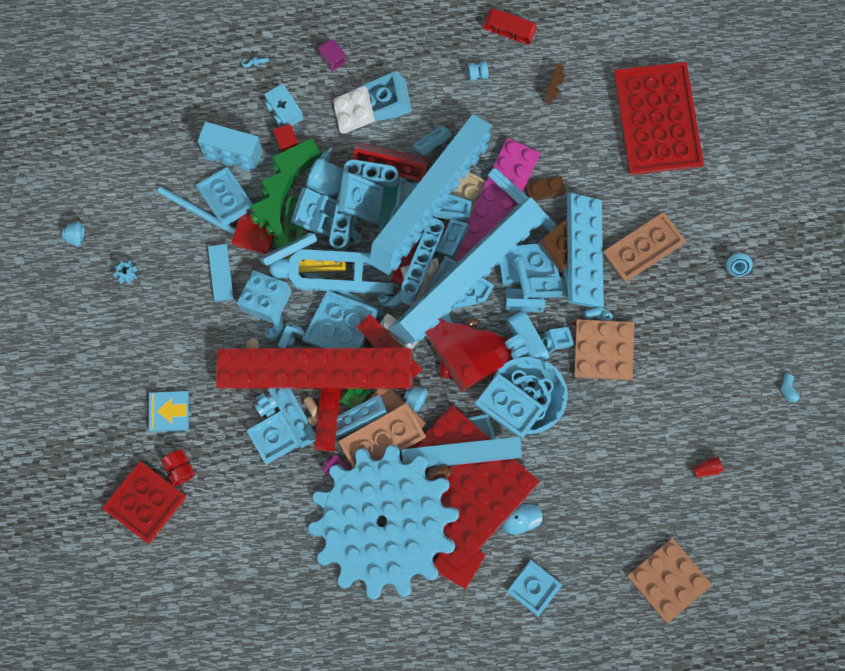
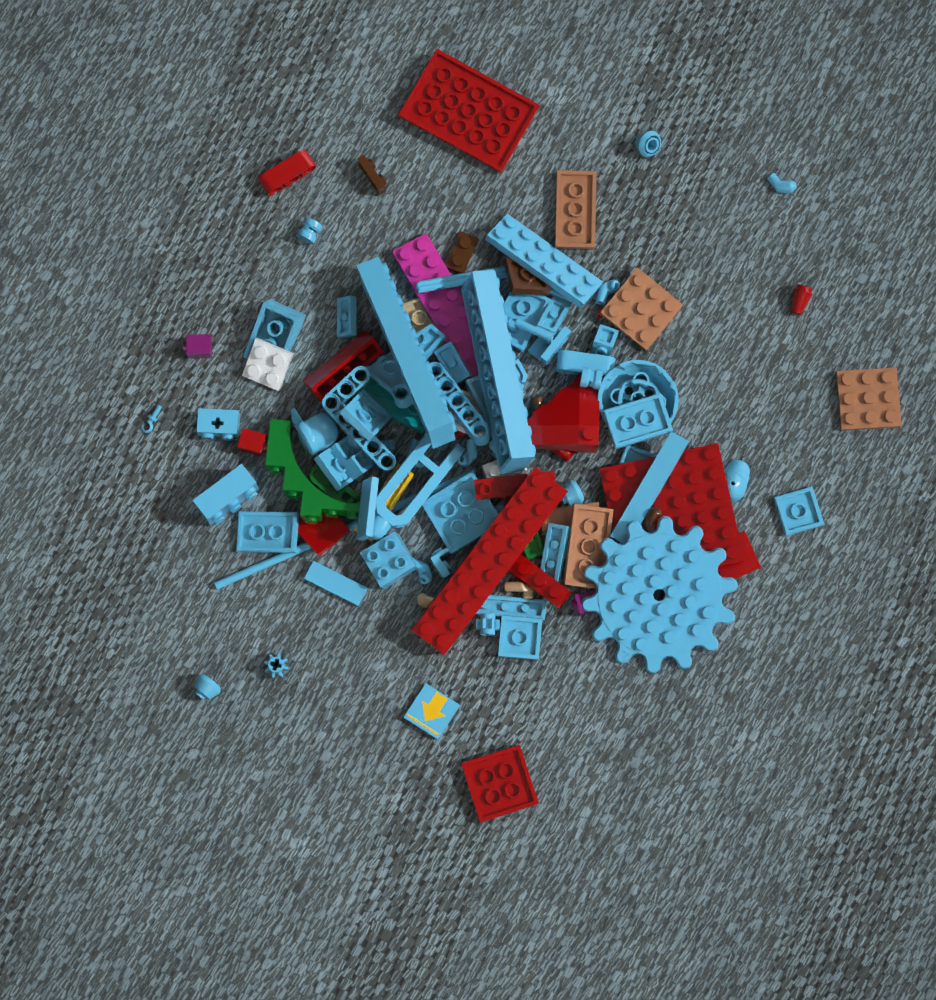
camera: 55 degrees left, 5 degrees up
(178, 467) = (490, 734): red wheel -> none

